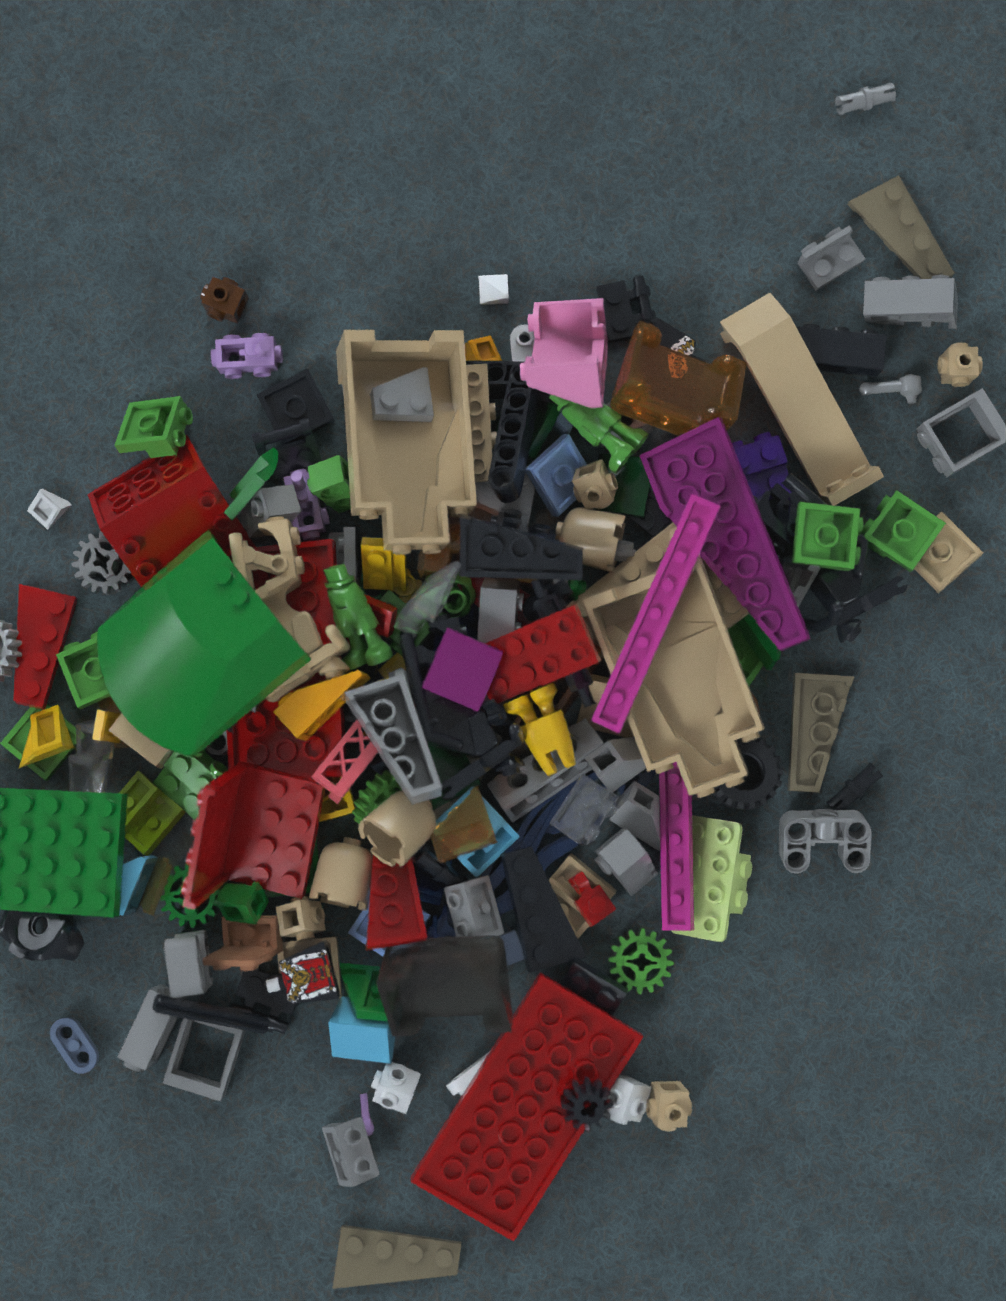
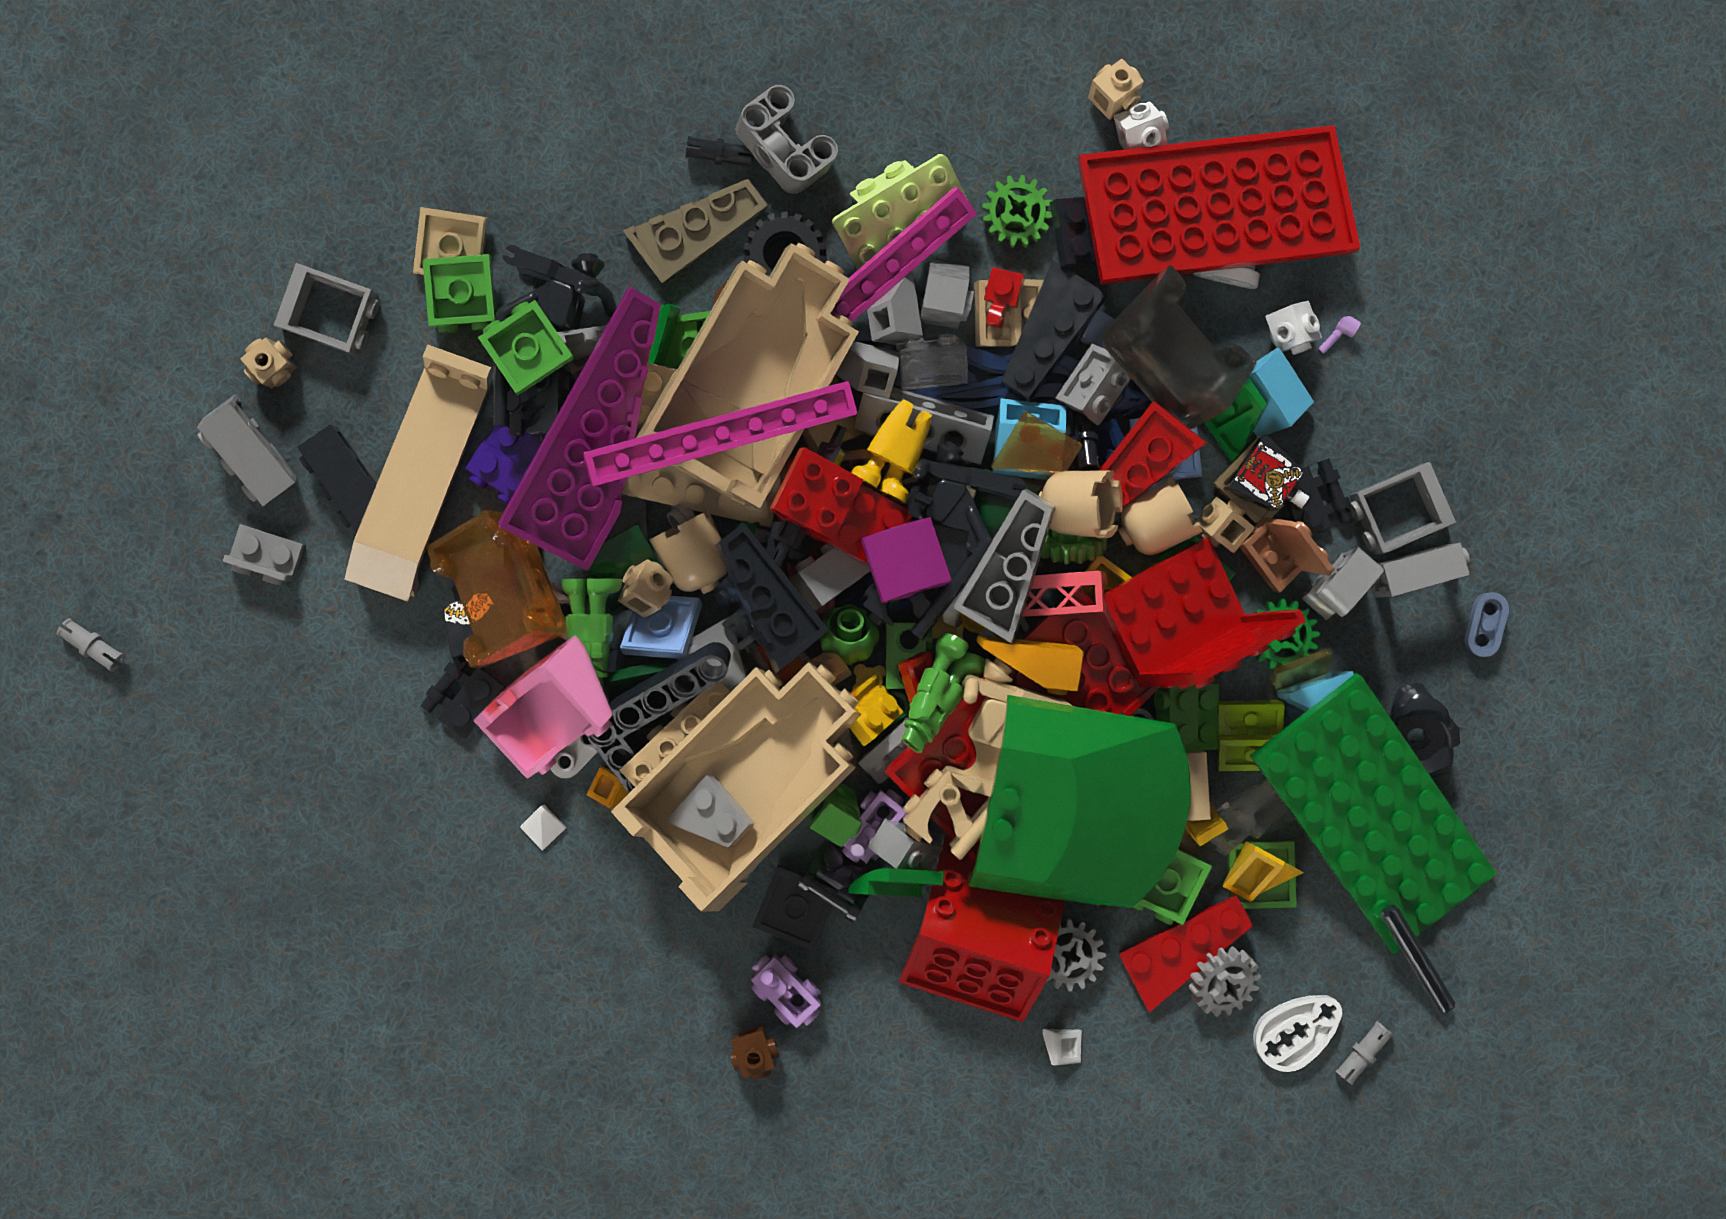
camera: 130 degrees left, 5 degrees up
(154, 427) = (917, 1013): bright green plate -> none
(210, 1014) = (1368, 528): black axle -> none
(242, 902) = (1254, 584): green brick -> none
(350, 1152) = (1377, 319): light grey bracket -> none
(385, 1257) = (1433, 218): dark tan wing -> none
(428, 600) = (870, 643): clear slope -> none
(576, 1110) = (1179, 143): black gear -> none
(902, 228) = (182, 519): dark tan wing -> none
(908, 386) = (324, 392): light grey piece -> none

